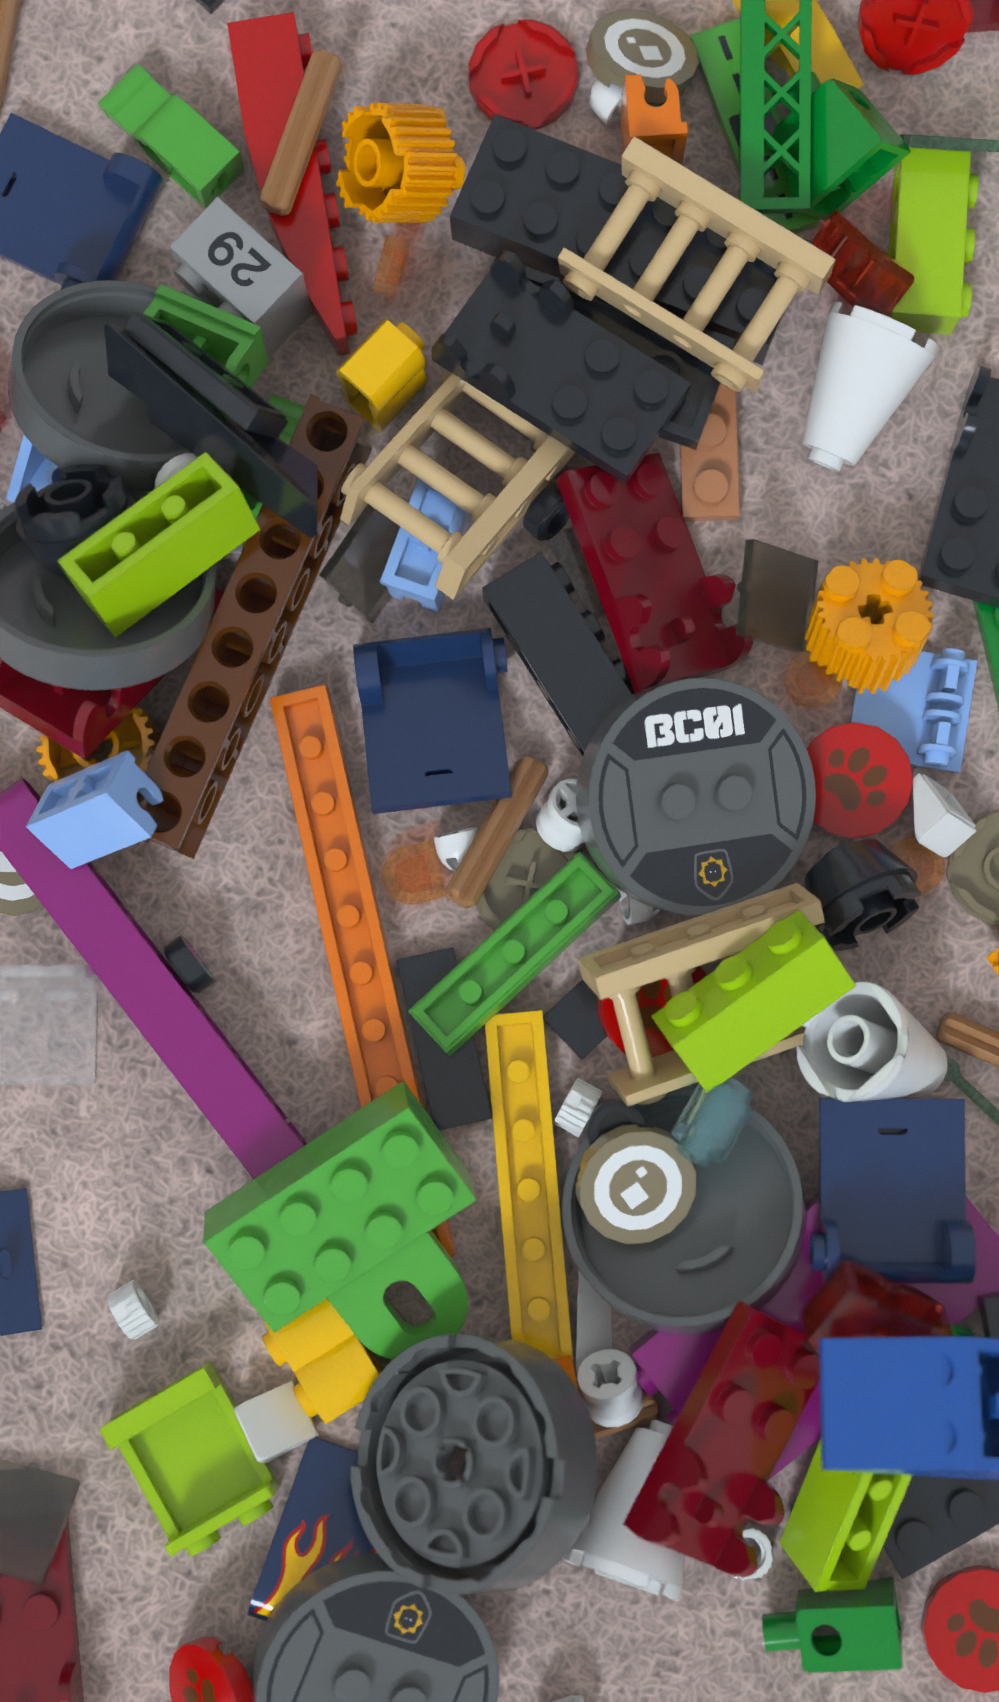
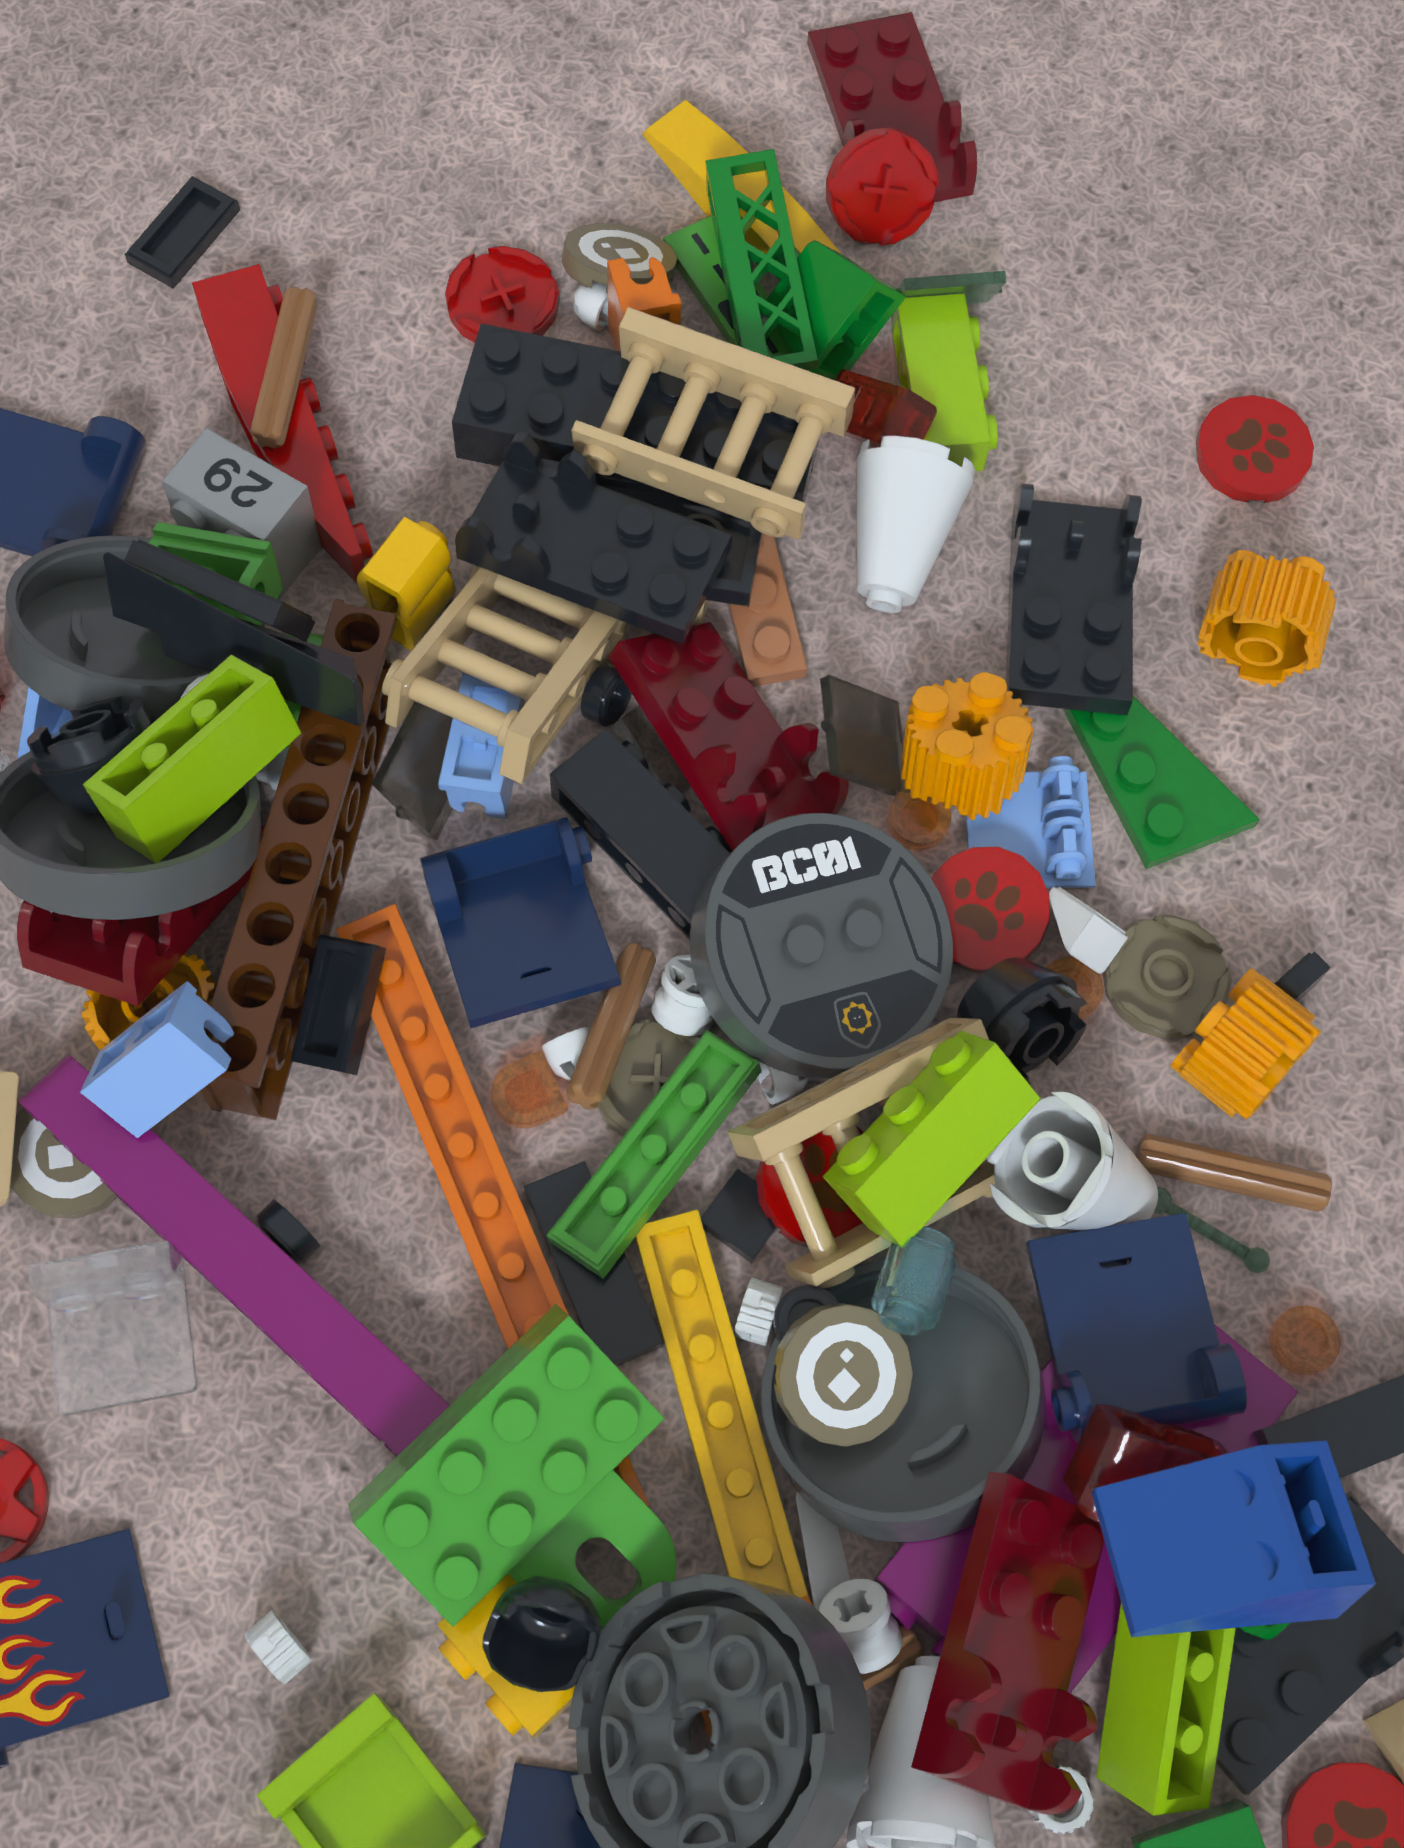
camera: 20 degrees left, 15 degrees down
(173, 136) = (149, 396): bright green piece -> none
(261, 769) = (338, 1004): none -> black tile
(275, 1423) = (471, 1752): white slope -> none
(345, 1354) = (542, 1634): none -> black hair
(391, 265) = (397, 483): clear orange tile -> none
(399, 162) = (390, 382): light orange brick -> none

